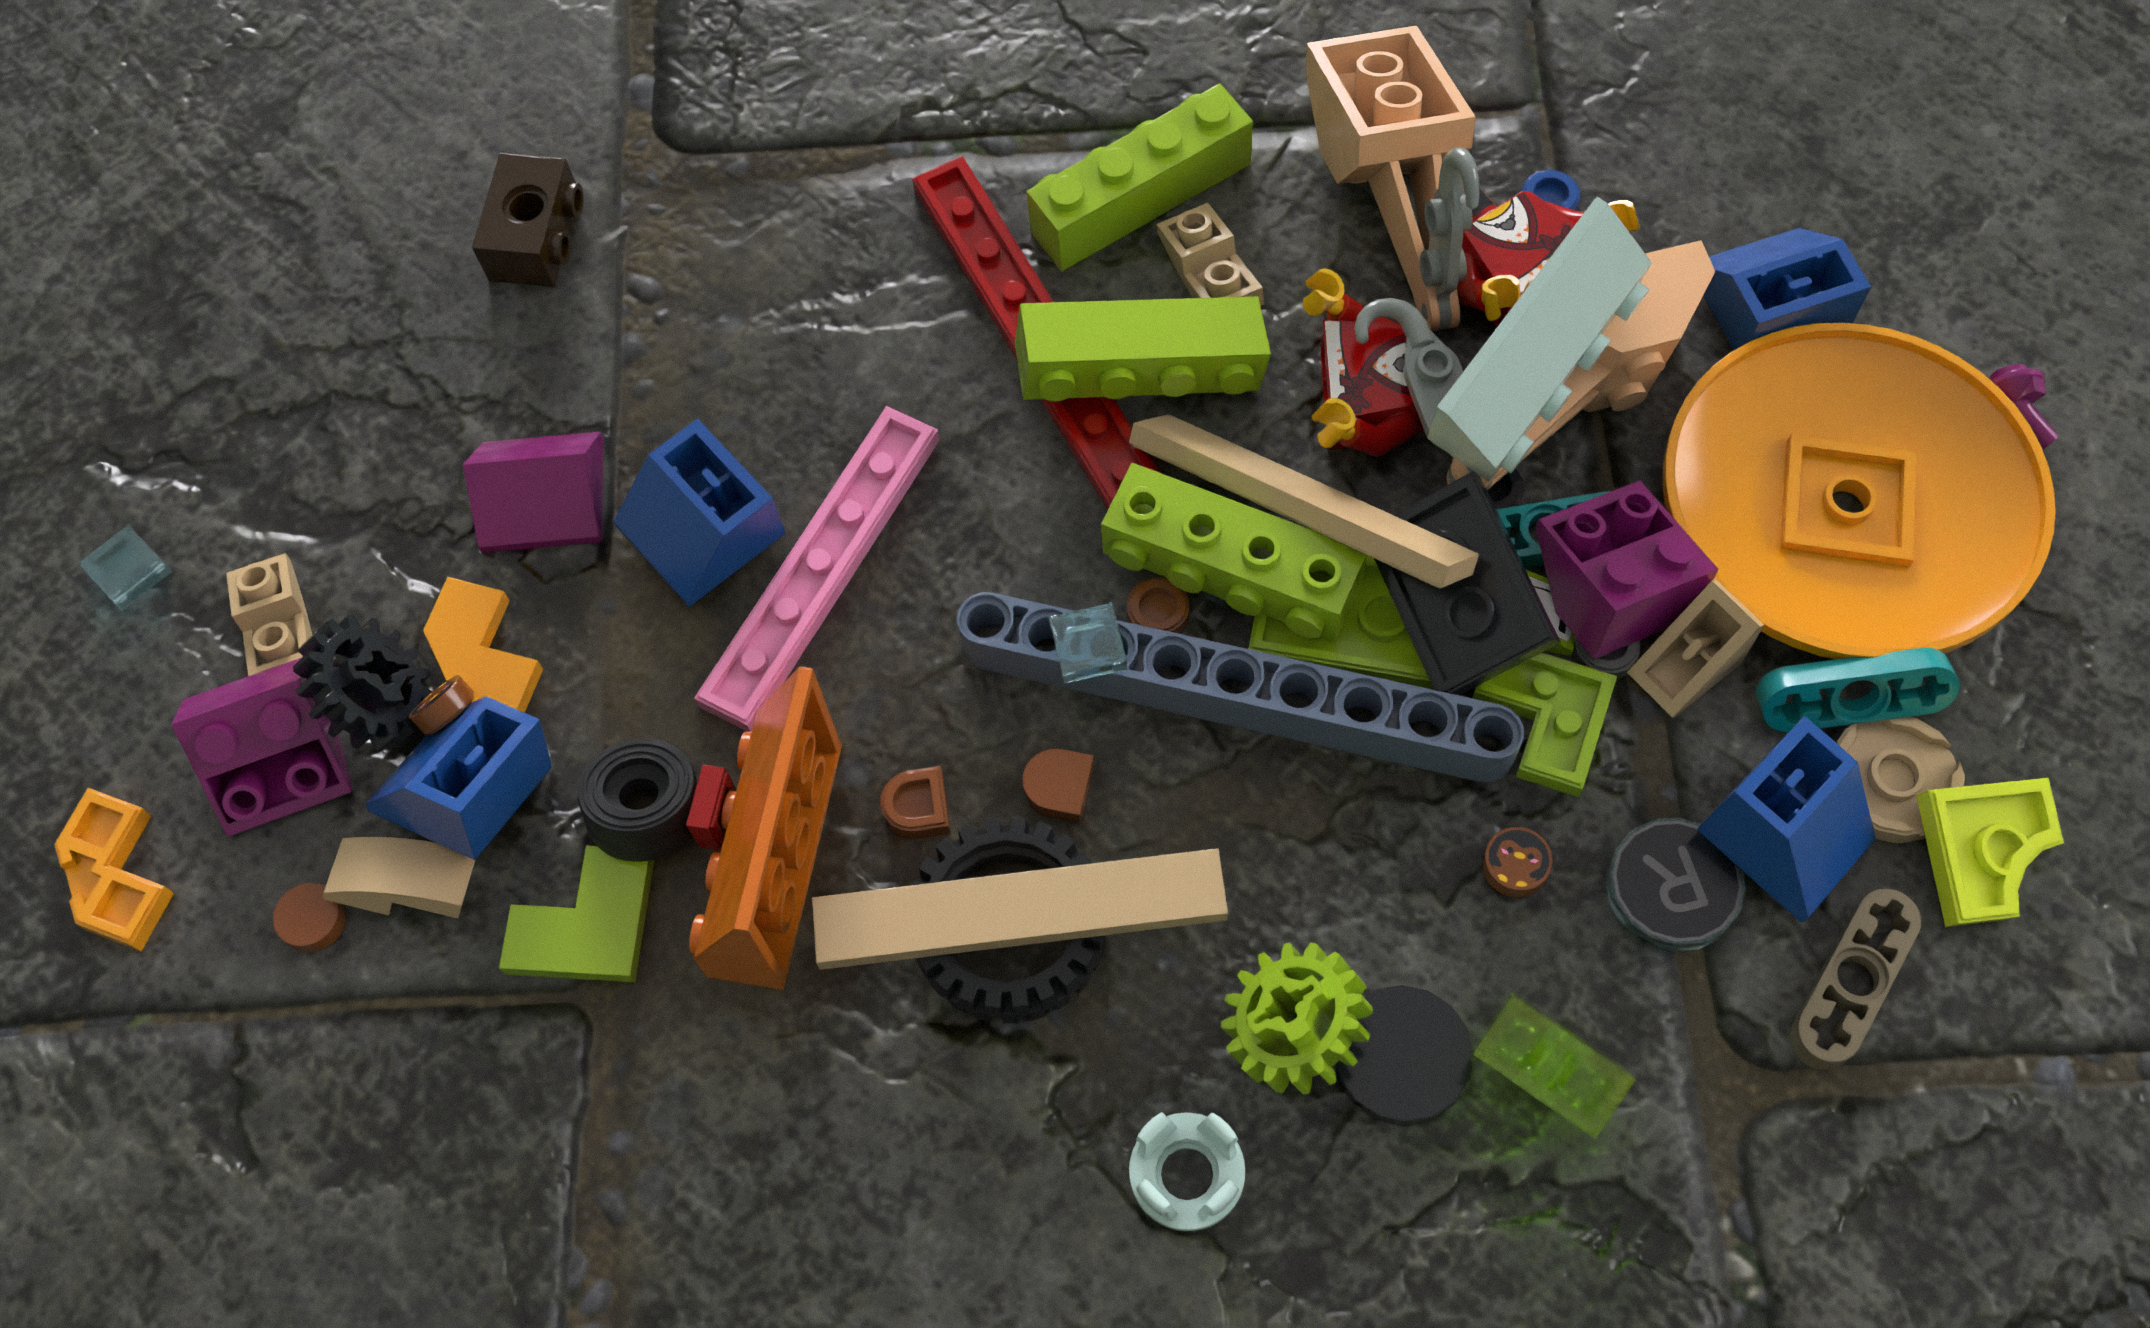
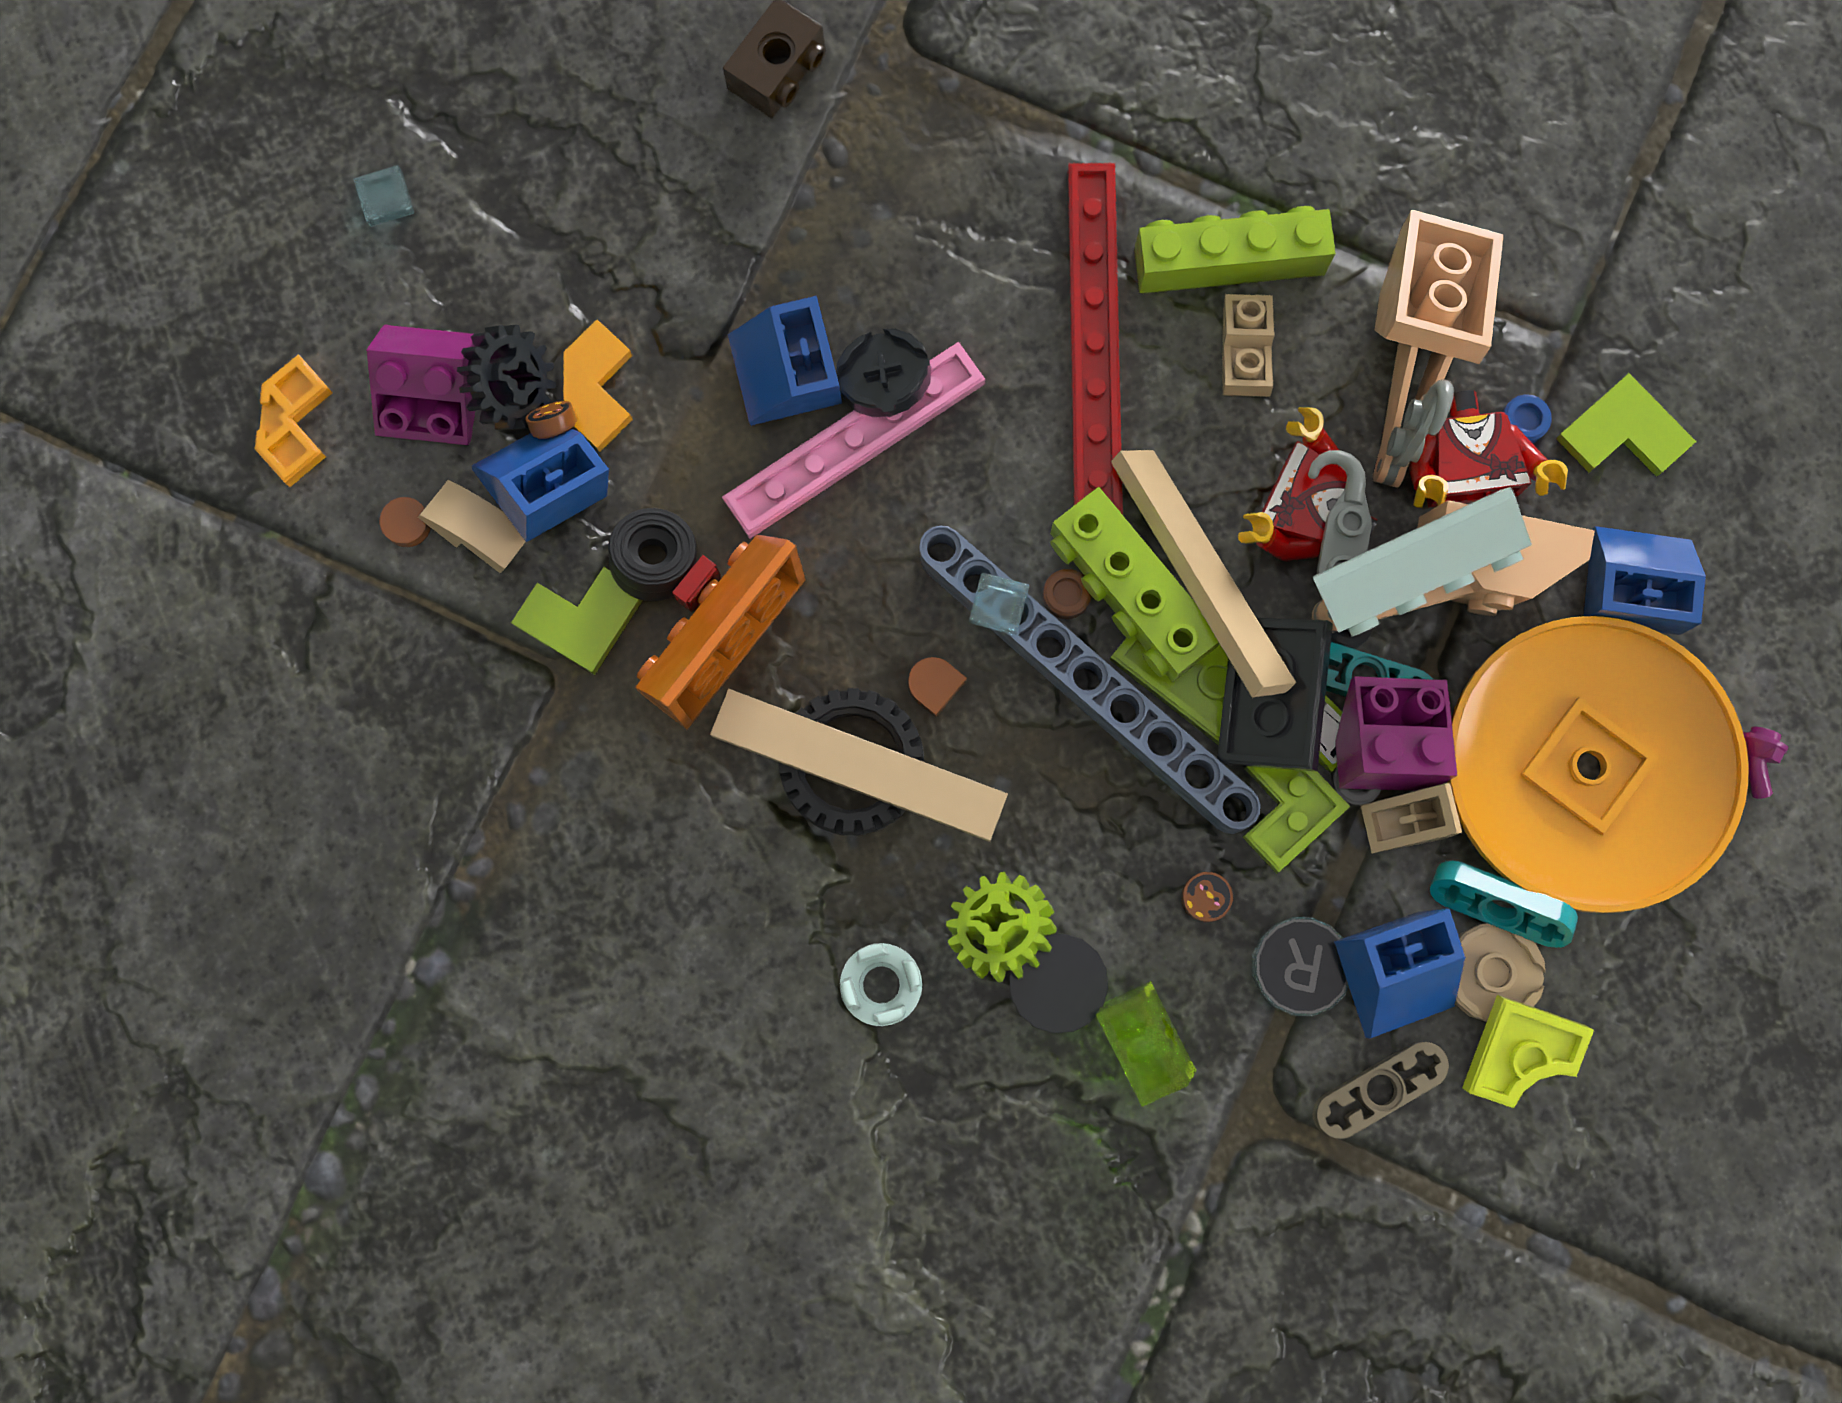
camera: 25 degrees right, 15 degrees up
(269, 612) = (467, 286): tan slope -> none
(536, 491) = (687, 281): magenta slope -> none
(819, 475) = (883, 373): none -> black tile
(916, 804) = (834, 648): dark orange tile -> none
(1141, 347) = (1156, 396): lime brick -> none
(1660, 146) = (1628, 417): none -> lime tile

